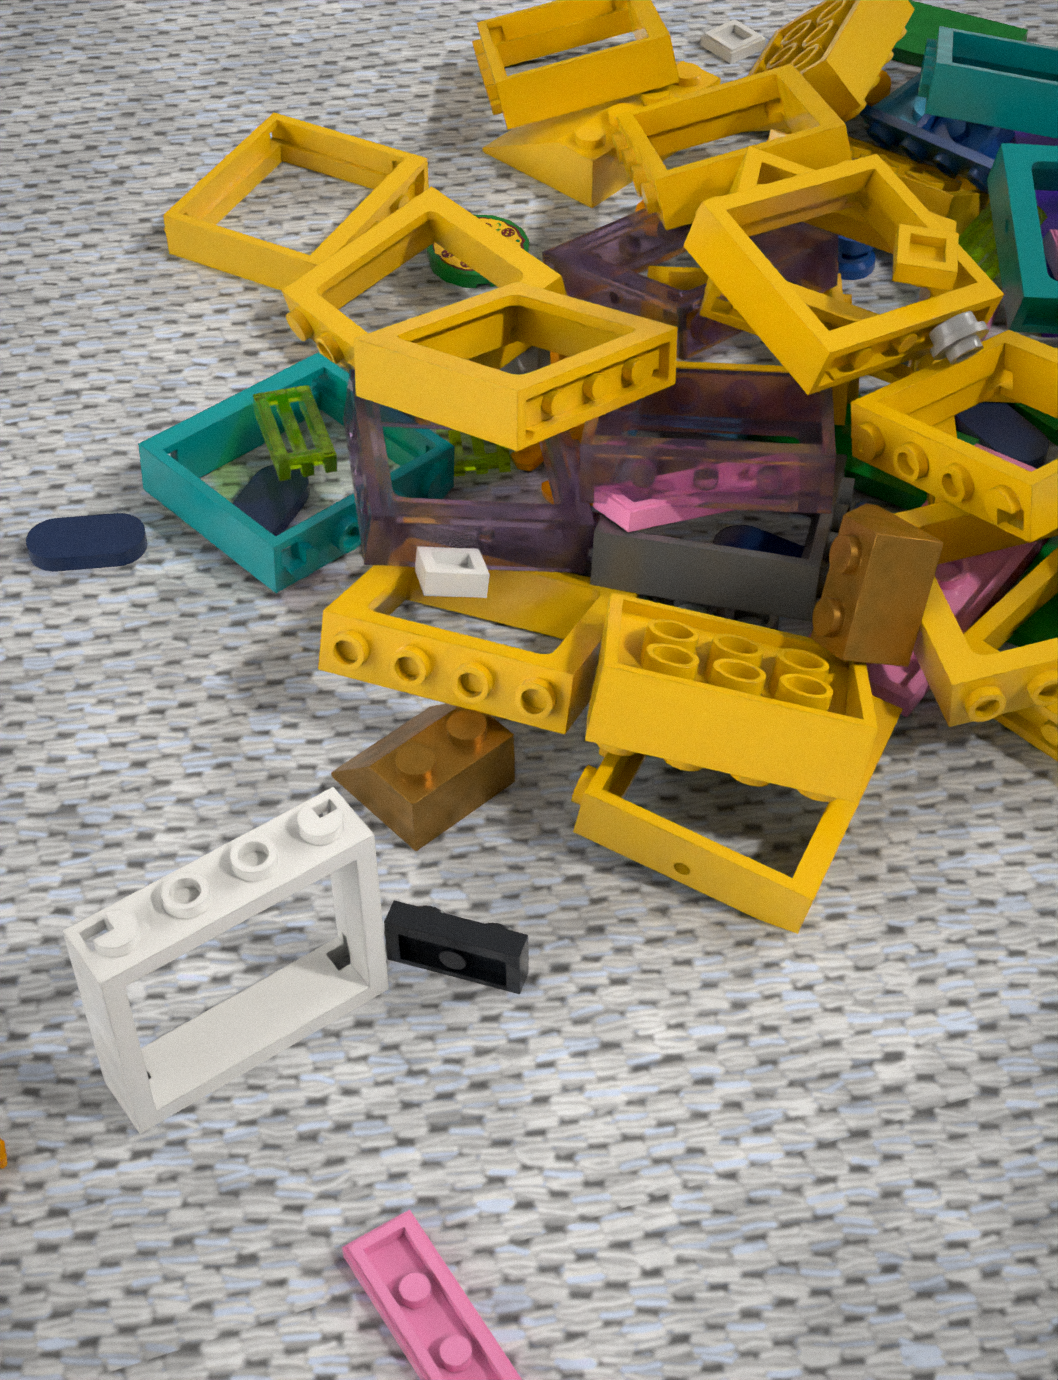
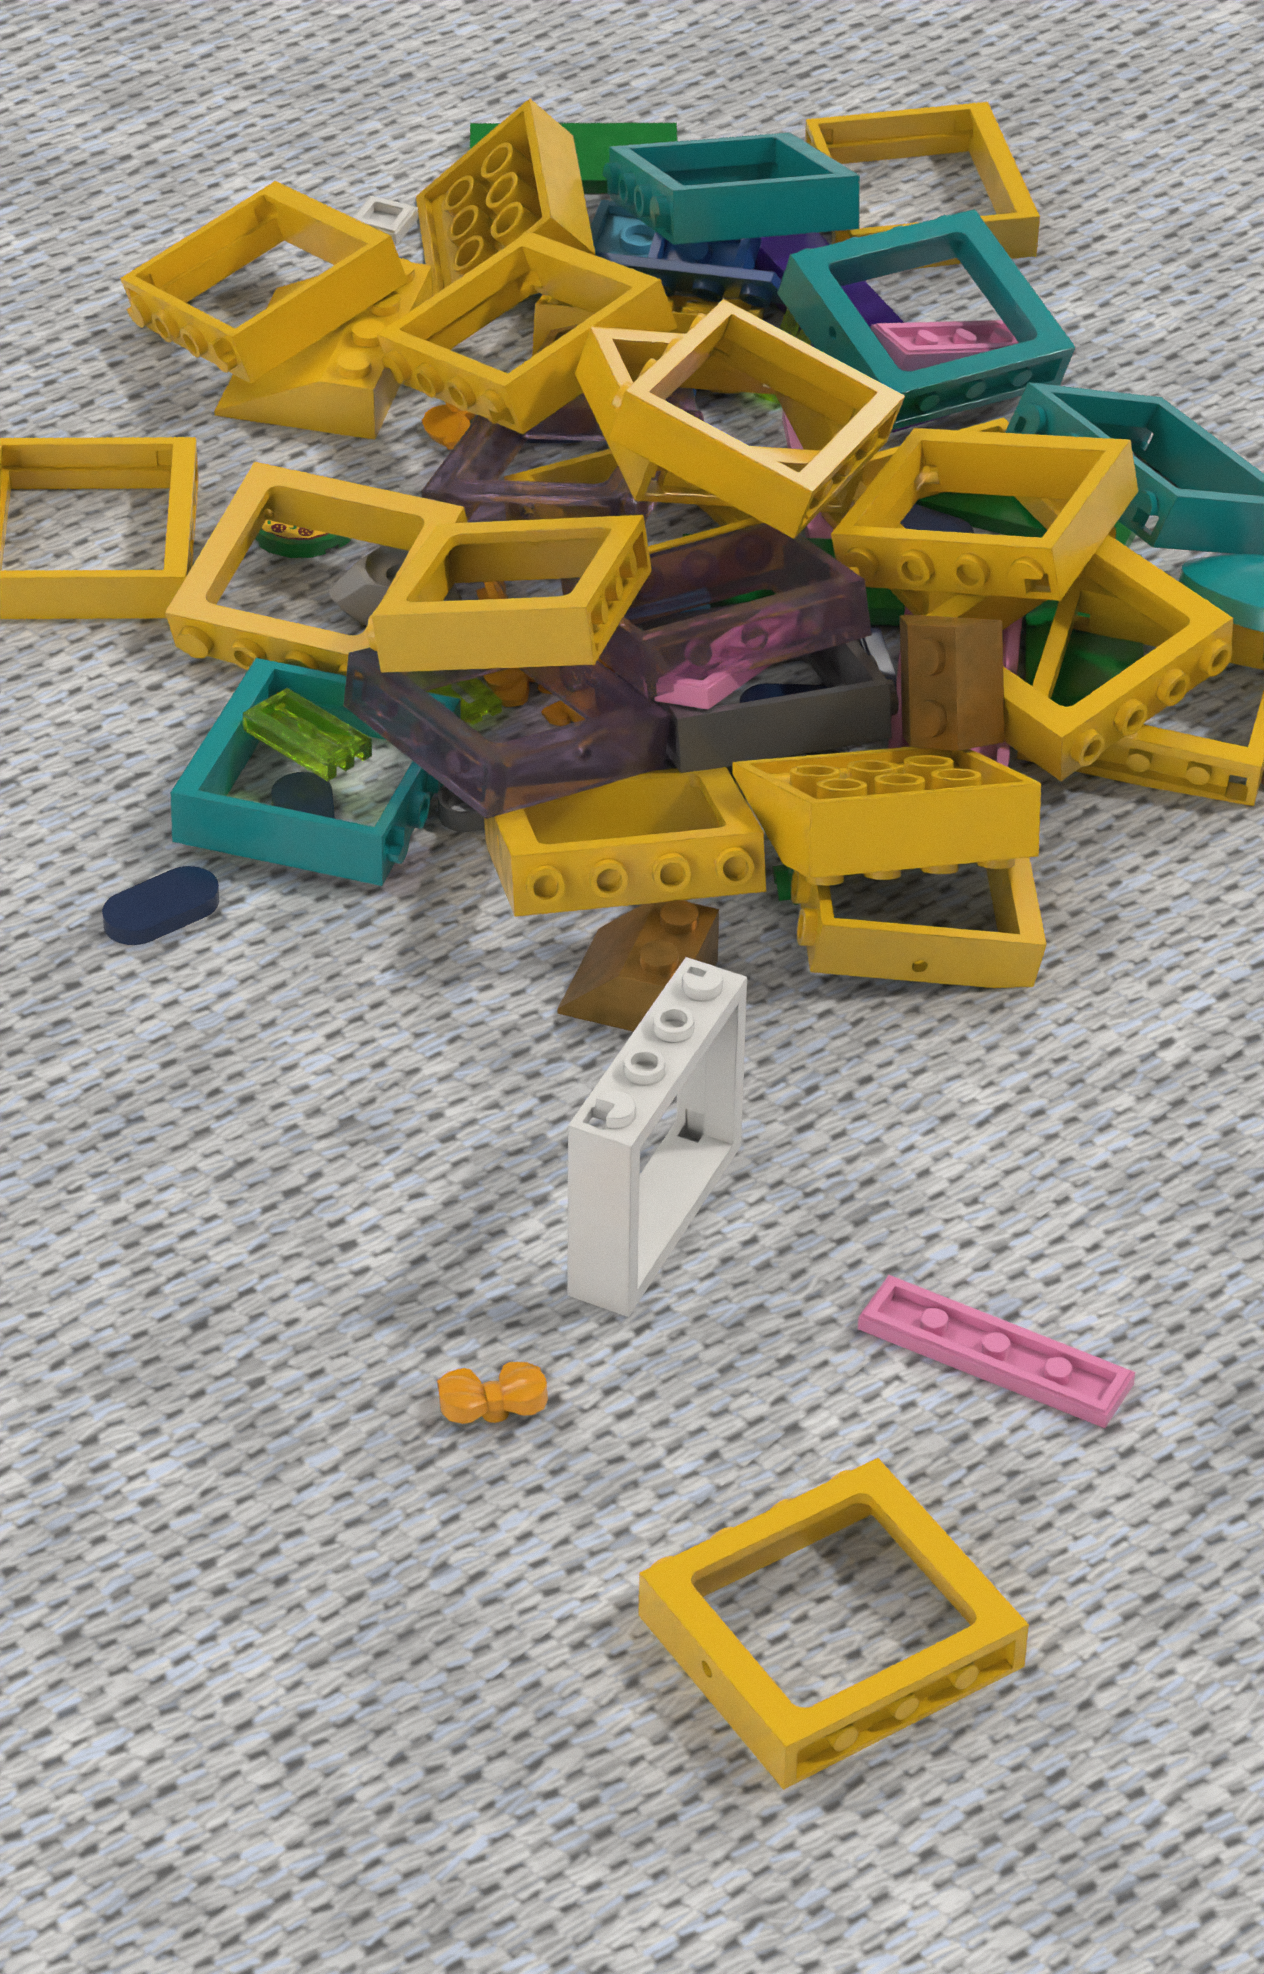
camera: 30 degrees left, 5 degrees down
(451, 572) = (573, 796): white tile -> none
(457, 946) = (796, 1086): black plate -> none
(925, 257) = (834, 382): yellow plate -> none
(958, 338) = (891, 447): light grey plate -> none

